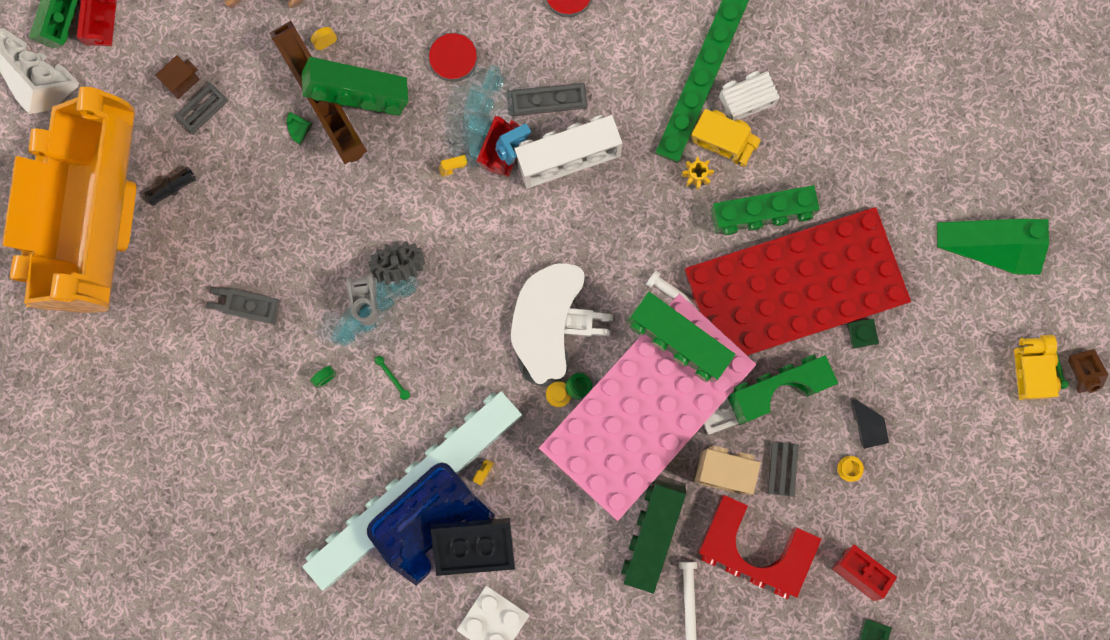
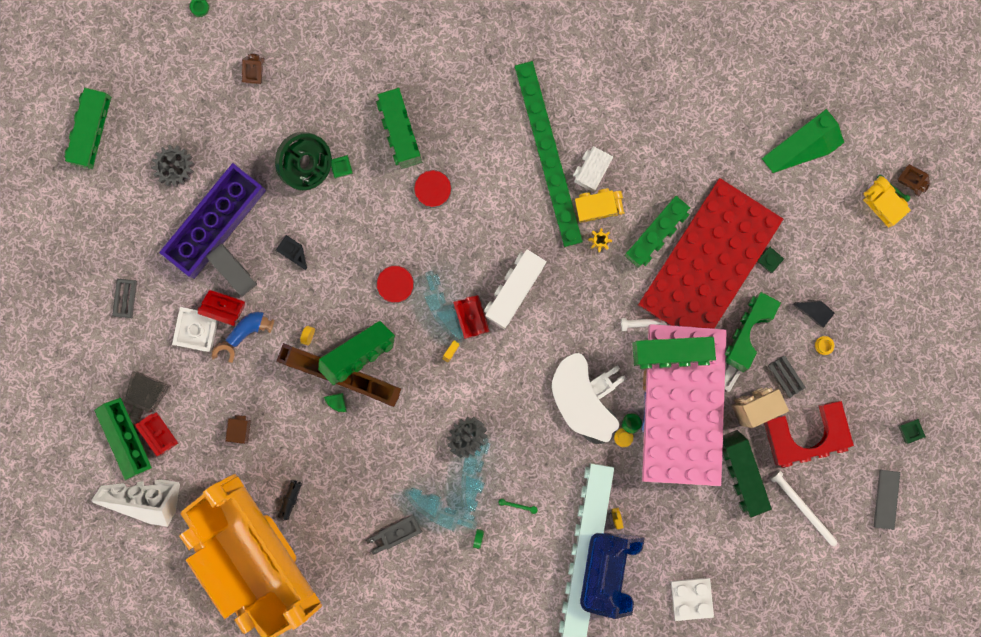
camera: 45 degrees left, 5 degrees up
(208, 114) = (275, 437): dark grey tile -> none
(302, 309) = (431, 507): none -> clear light blue slope
(363, 294) = (466, 474): light grey piece -> none
(473, 546) = (647, 566): black plate -> none
(509, 140) = (479, 307): dark azure bracket -> none
(549, 99) = (474, 264): dark grey tile -> none
(864, 573) = (879, 400): red hinge -> none

